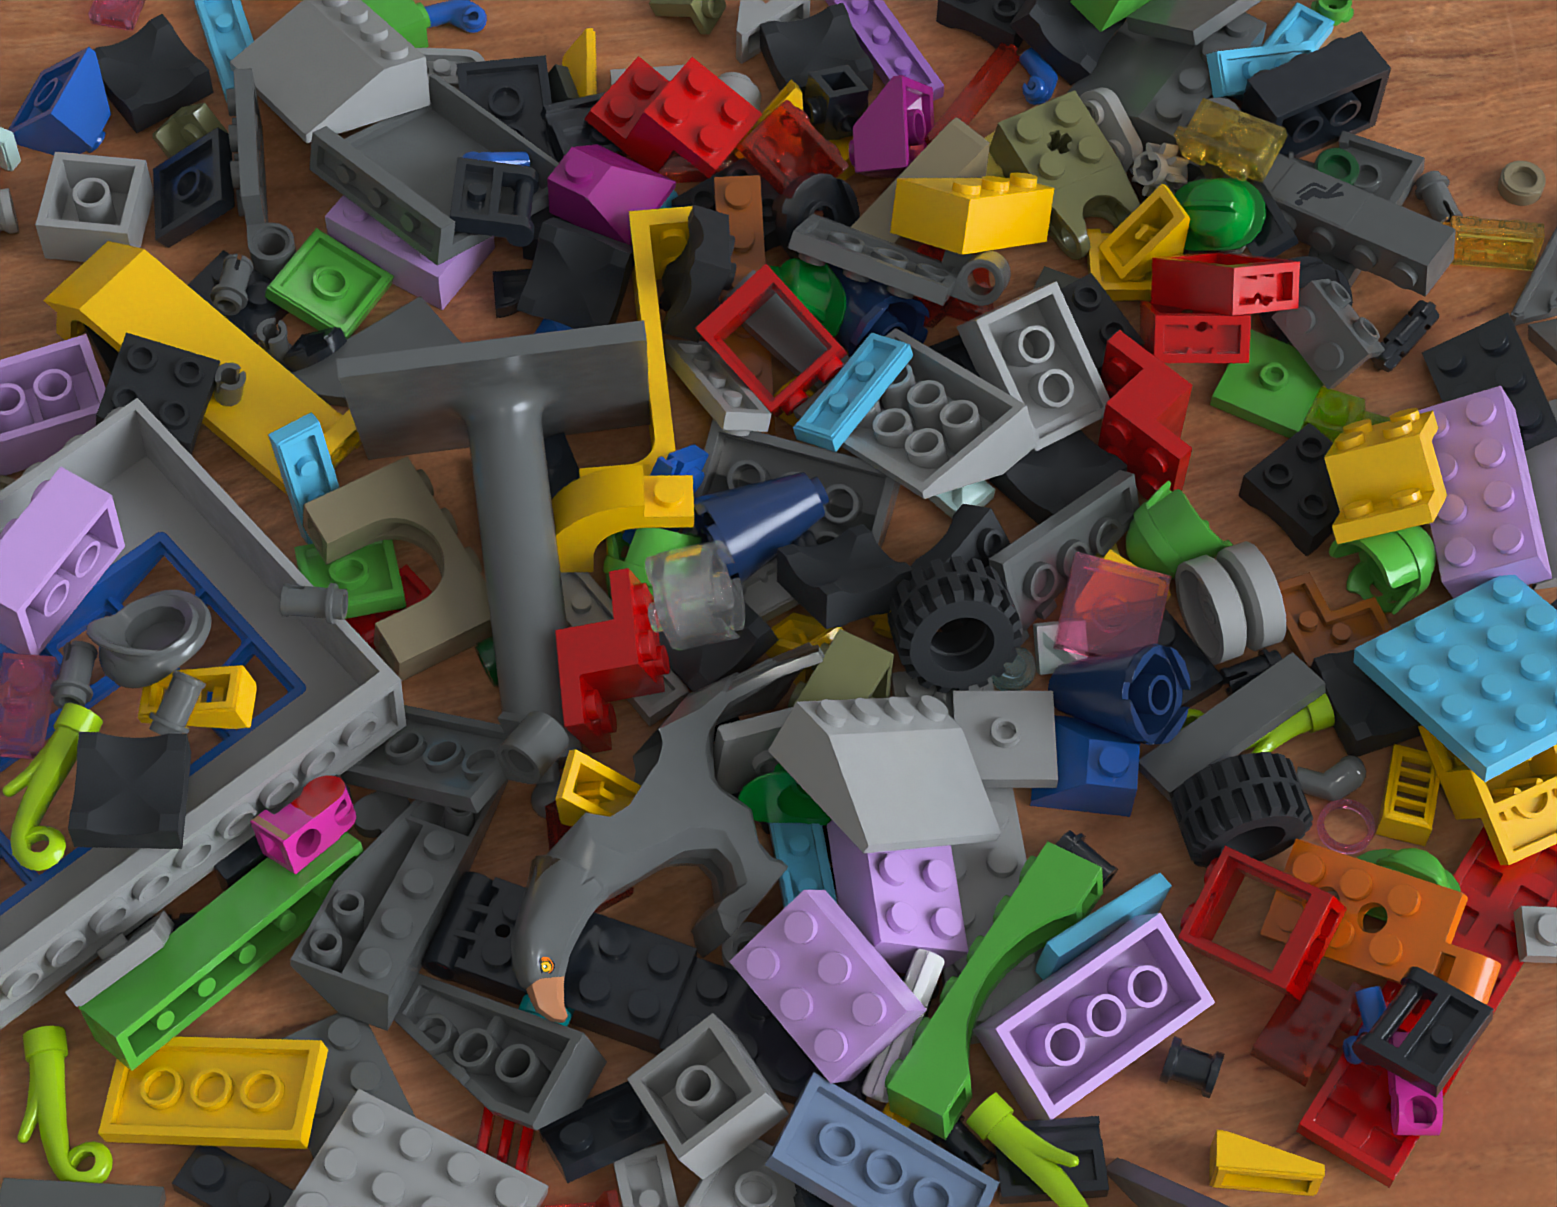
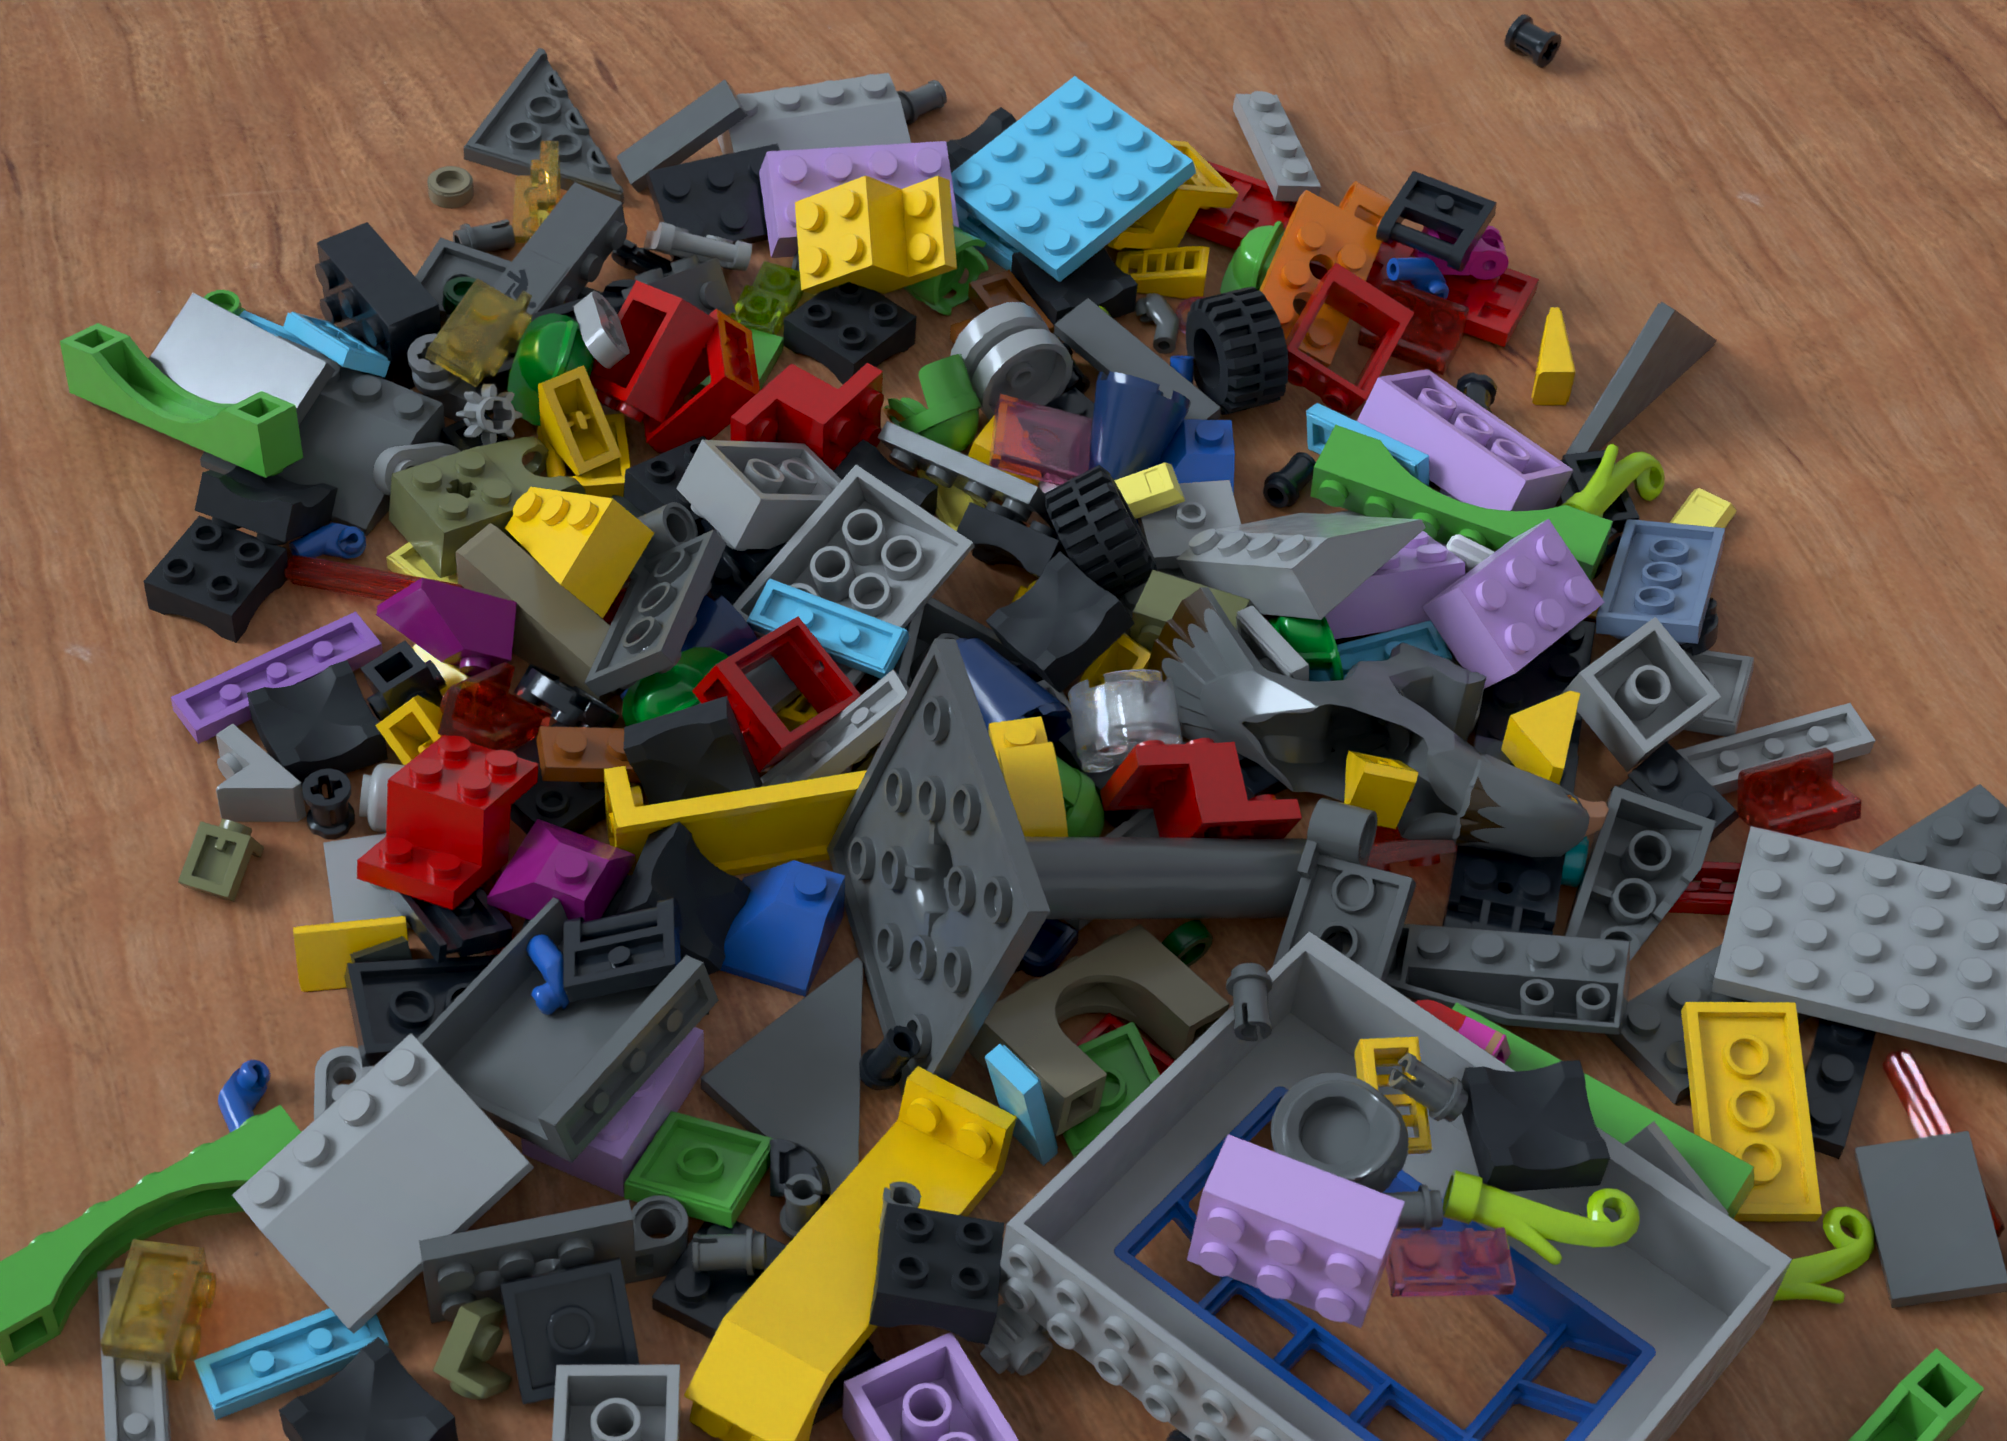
camera: 100 degrees left, 10 degrees down
(647, 982) = (1541, 736): none -> yellow slope
(735, 55) = (338, 795): none -> black bush
(1033, 684) = (1151, 490): none -> light yellow tile
(1234, 243) = (601, 329): none -> light grey beam
(1403, 352) = (682, 244): none -> light grey plate

